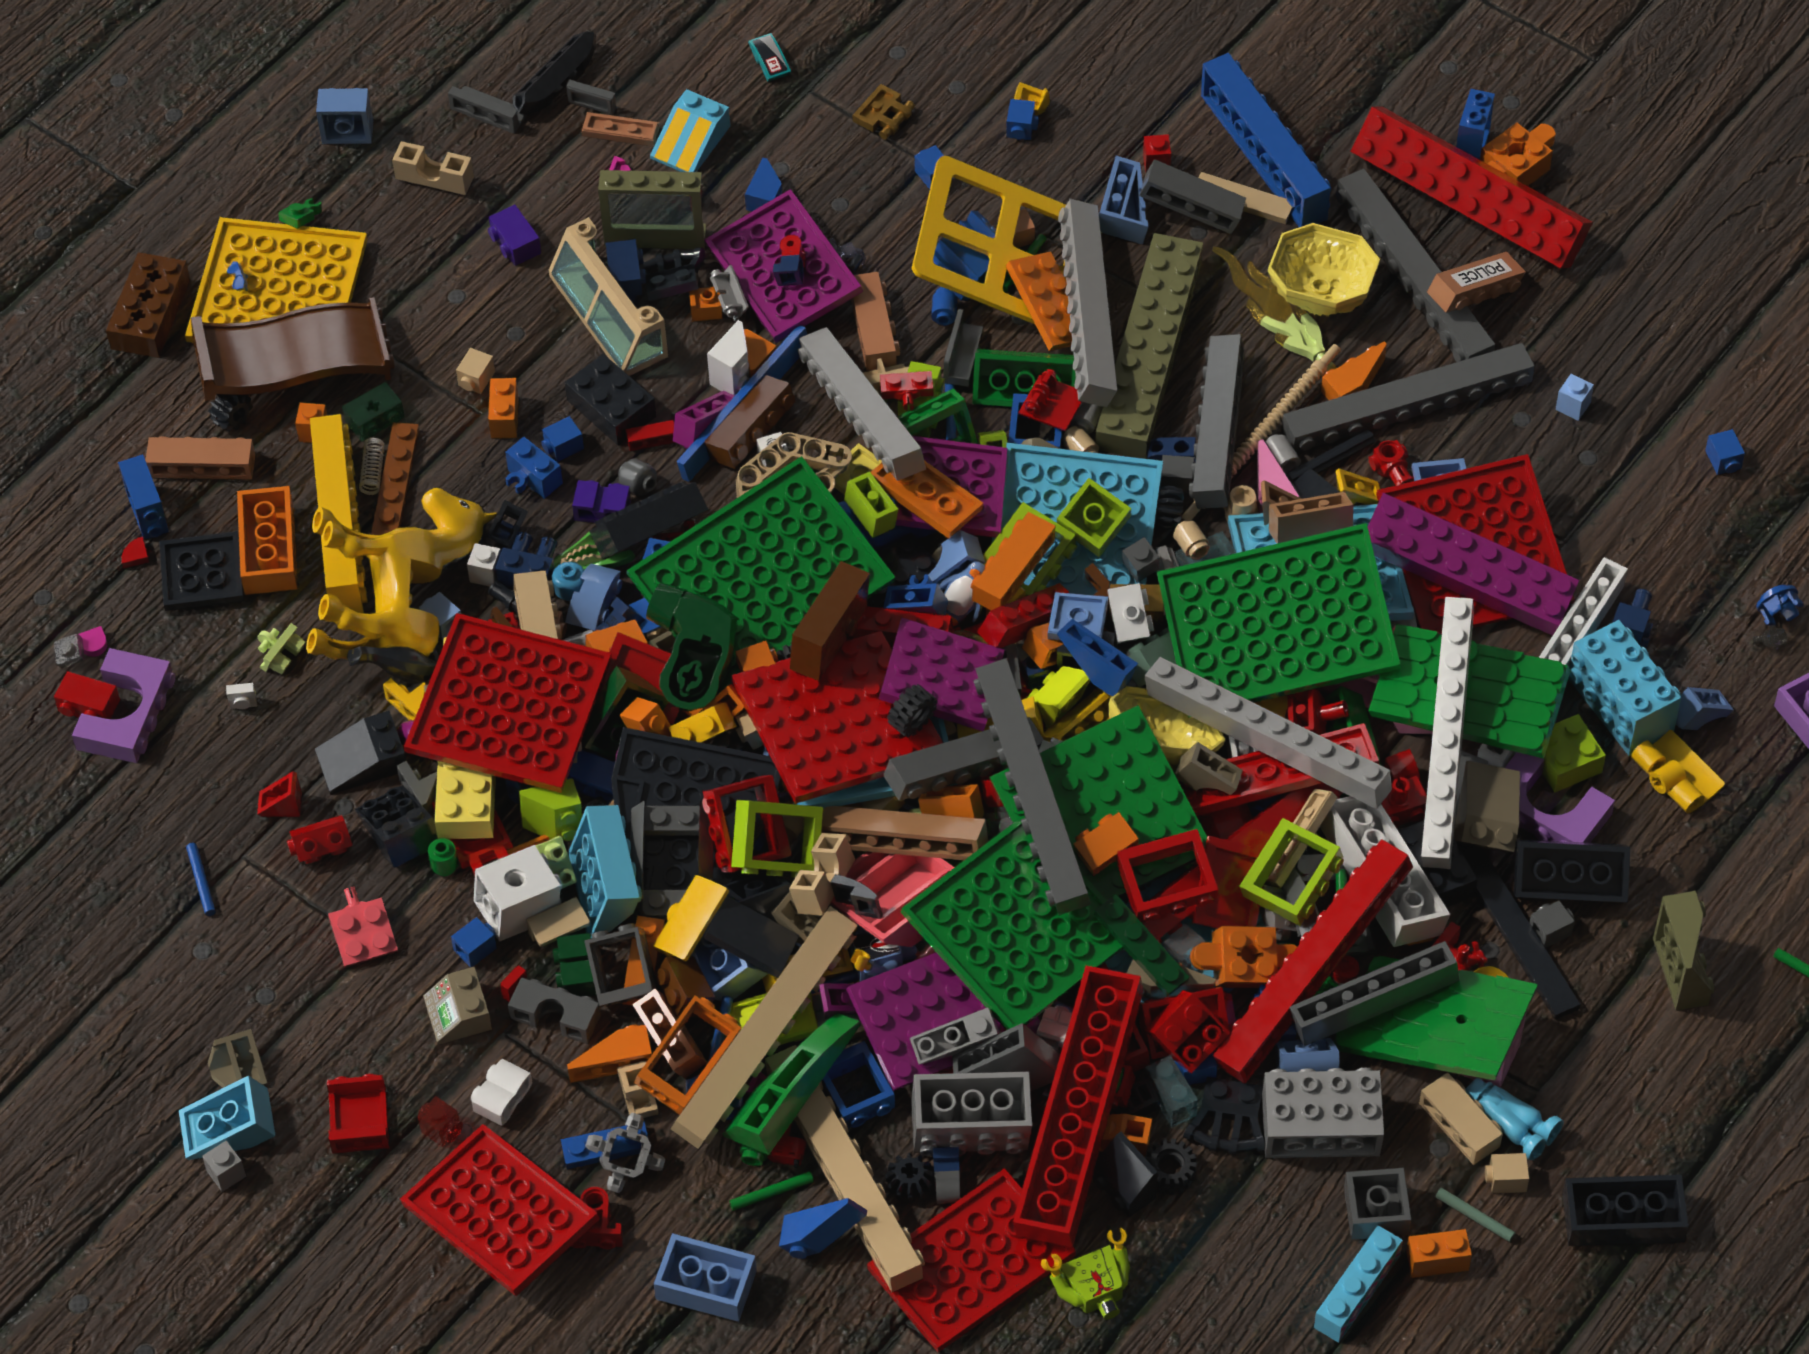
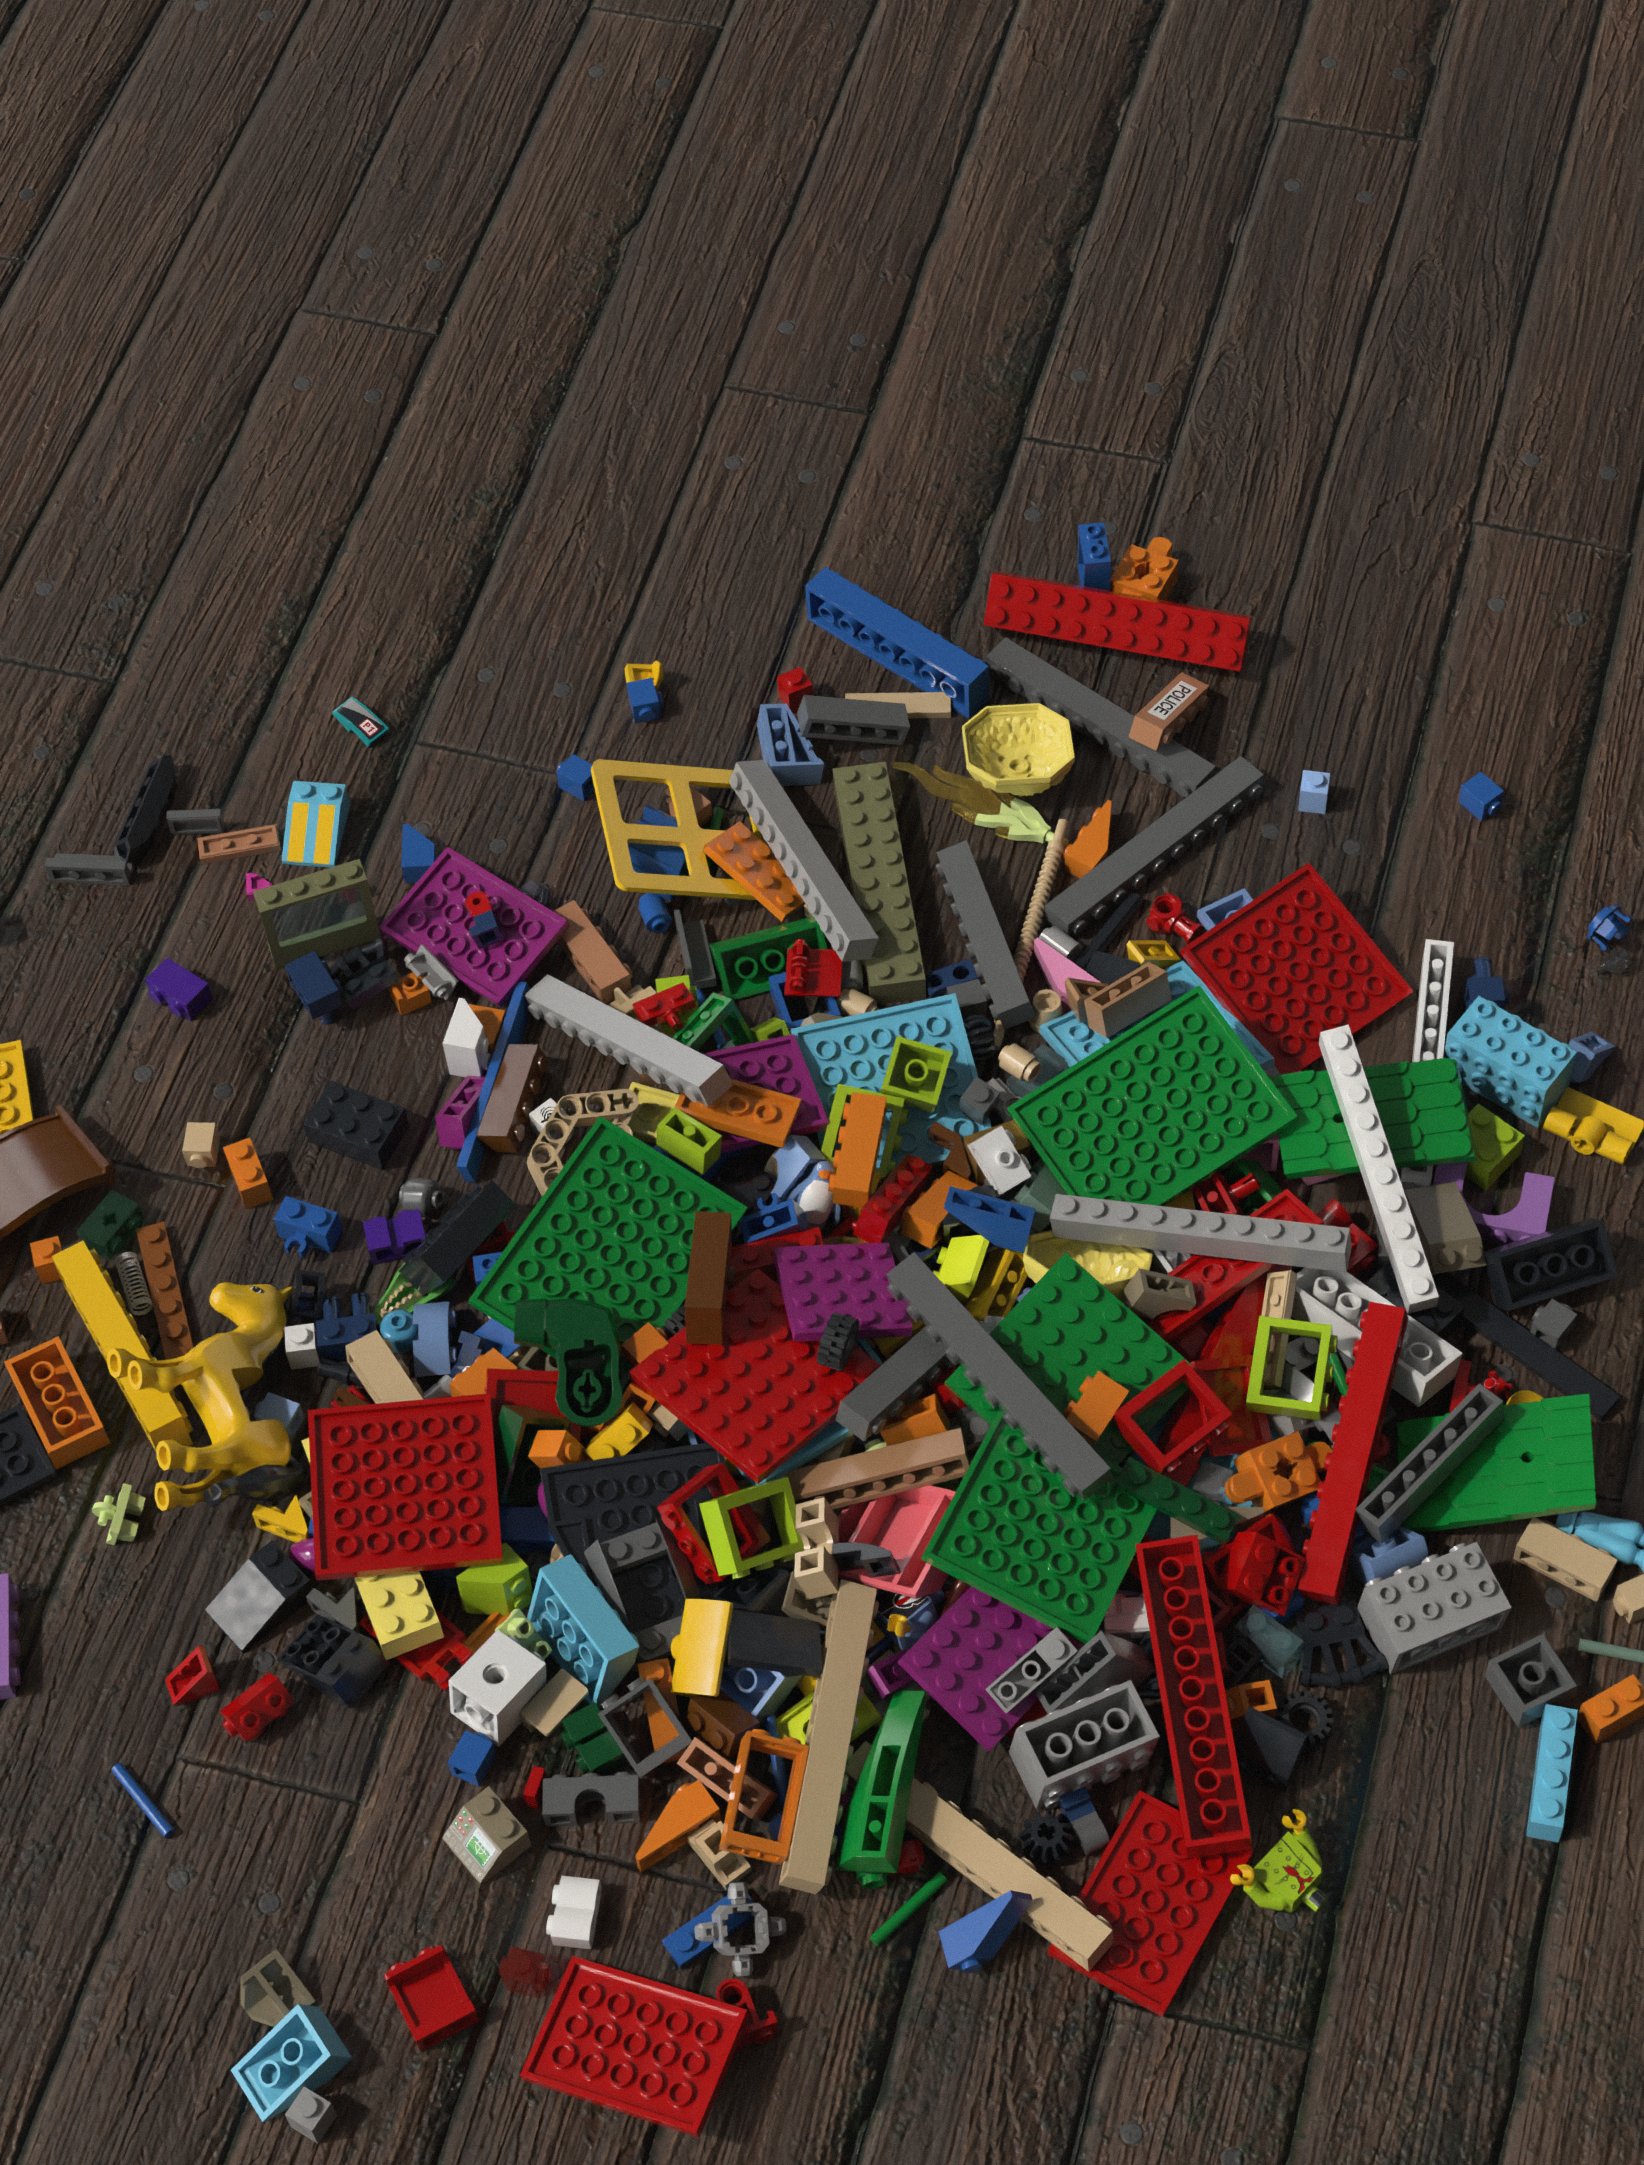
camera: 20 degrees left, 0 degrees up
(241, 696) = (101, 1582): white plate -> none
(362, 930) = (346, 1790): coral plate -> none
(415, 166) = (43, 953): tan arch -> none
(442, 856) = (398, 1677): green brick -> none
(562, 439) = (324, 1184): blue brick -> none
(625, 334) = (307, 1030): windscreen -> none
(650, 435) = (414, 1148): red piece -> none
(705, 1277) = (887, 2033): medium blue brick -> none
(878, 107) = (494, 734): pearl gold plate -> none
(878, 1105) = (978, 1772): blue window -> none
(1084, 609) = (939, 1174): medium blue tile -> none
(1470, 564) = (1306, 991): magenta brick -> none

